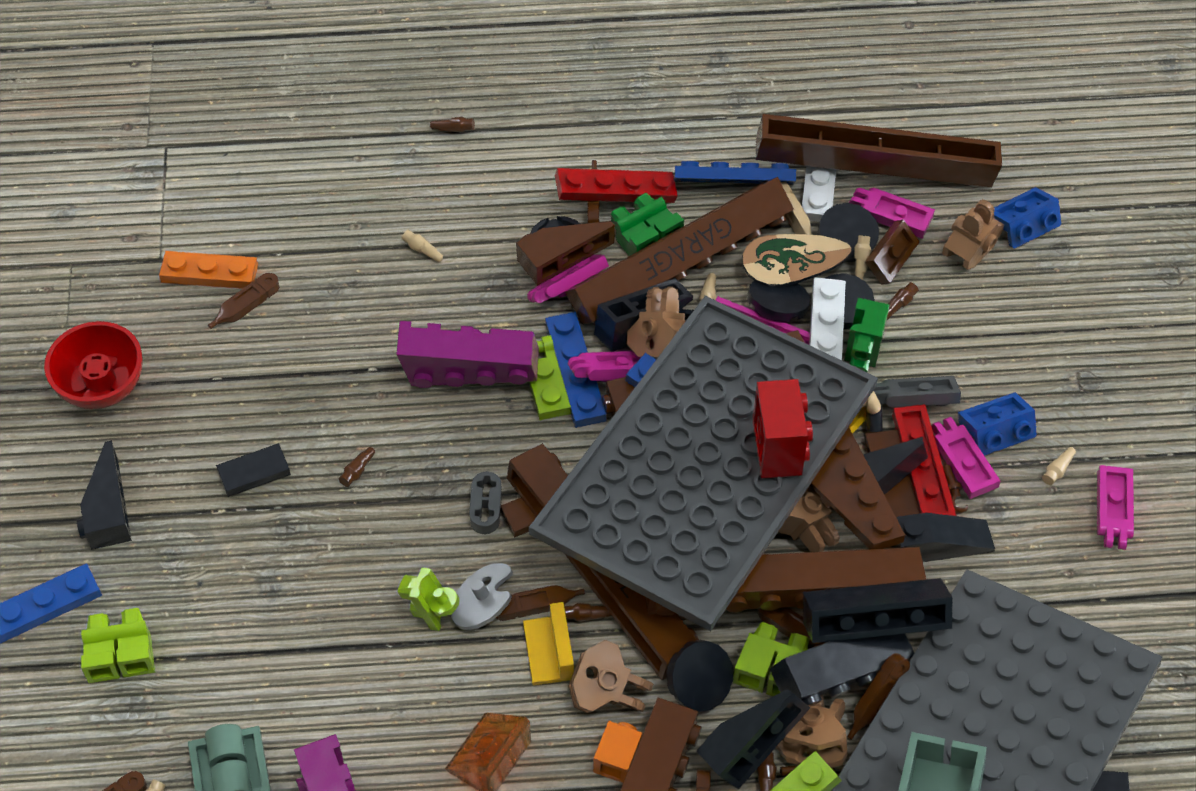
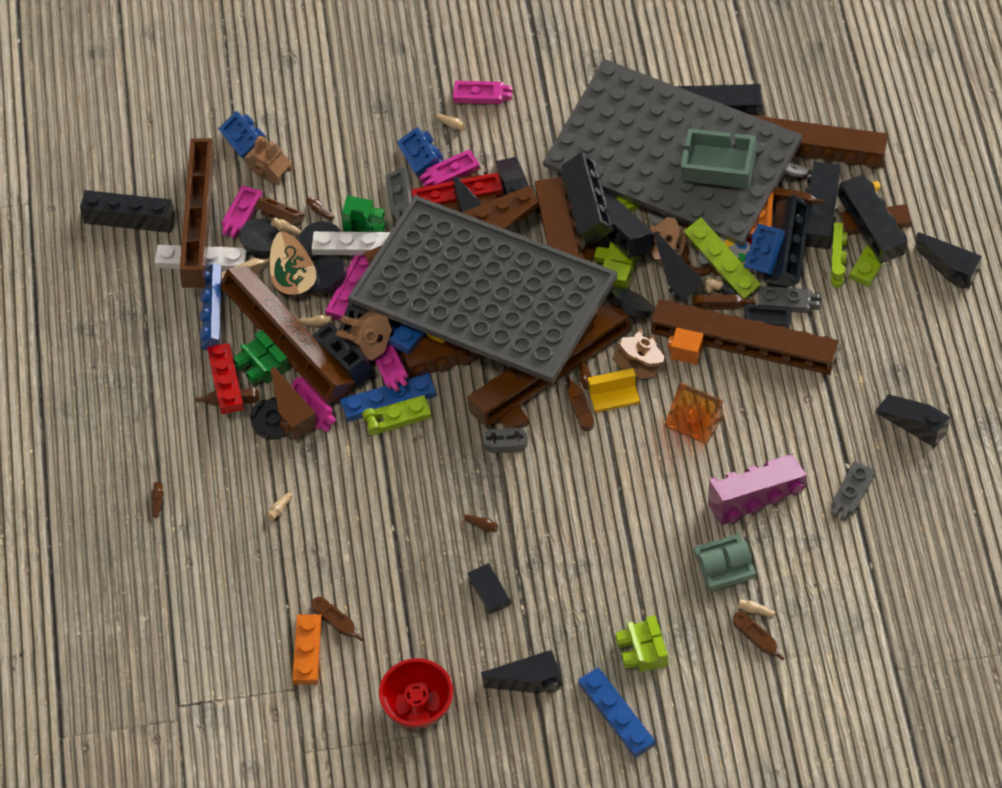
camera: 90 degrees left, 0 degrees up
(428, 597) = (592, 454): lime hips -> none
(466, 355) = (392, 453): magenta wedge -> none
(479, 602) = (587, 434): light grey piece -> none
(781, 428) = (475, 232): red brick -> none
(878, 691) = (632, 207): reddish brown piece -> none
(893, 82) = (127, 211): none -> black brick

